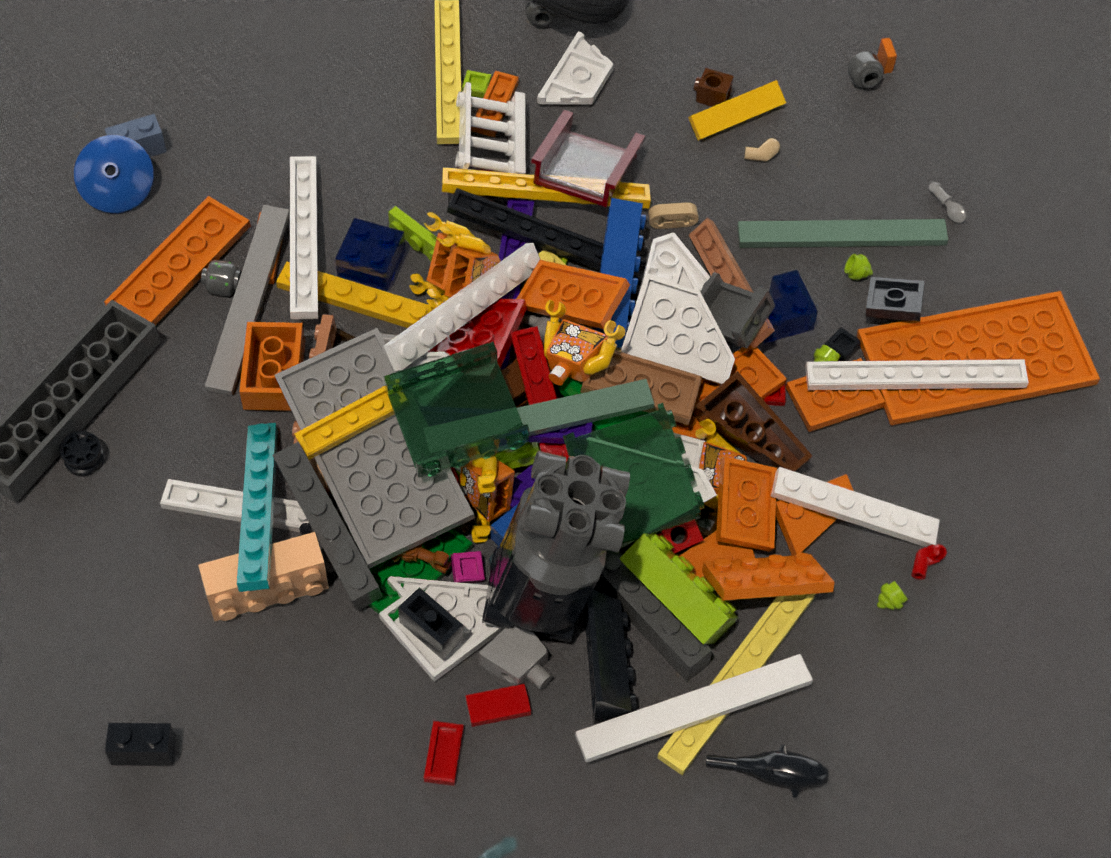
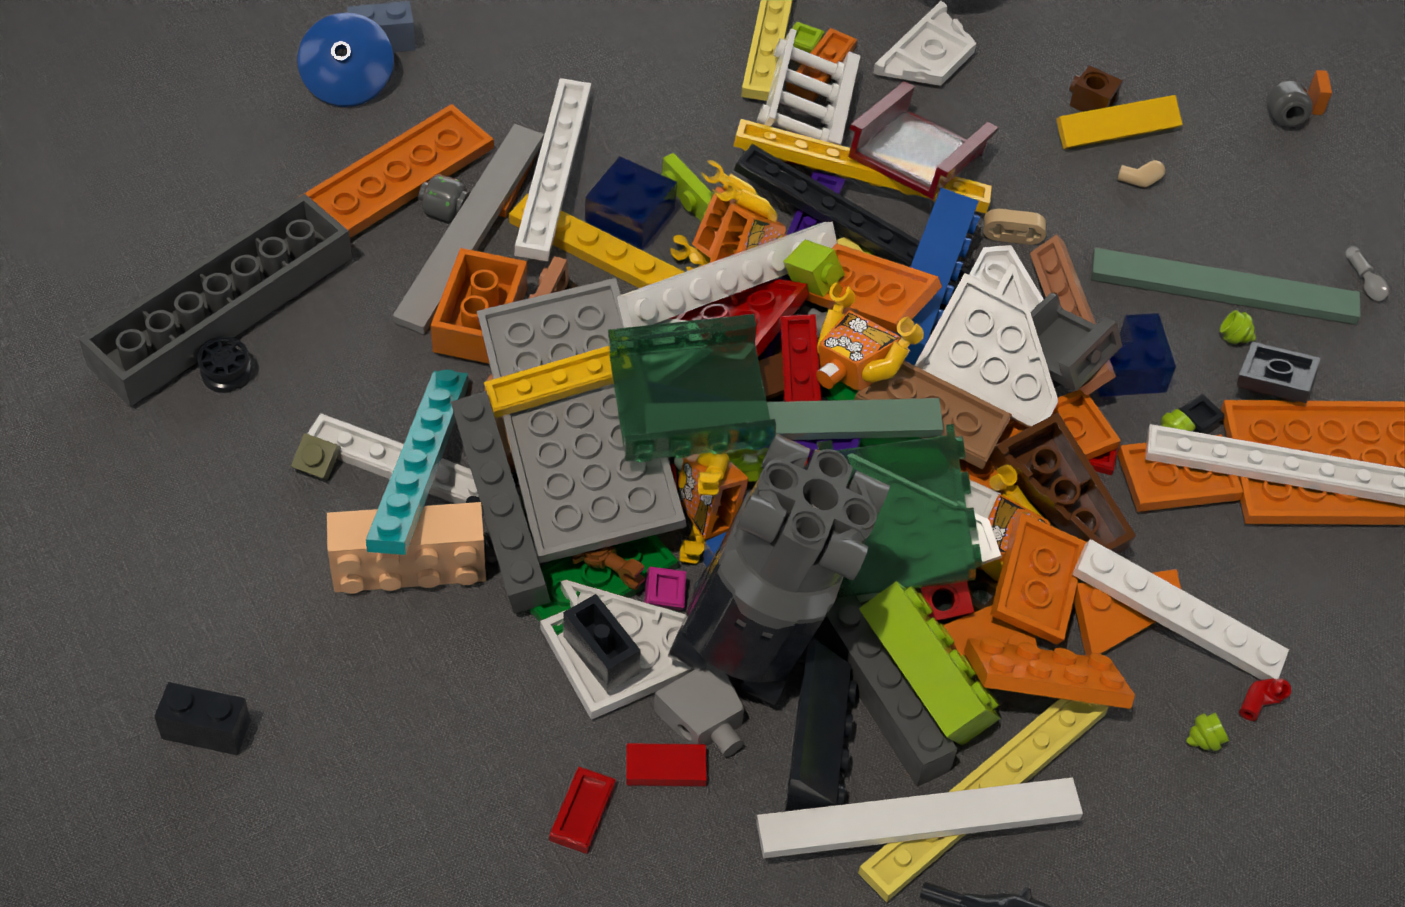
camera: 10 degrees right, 5 degrees down
(173, 515) = (315, 456): none -> olive plate
(527, 284) = (815, 266): none -> lime brick

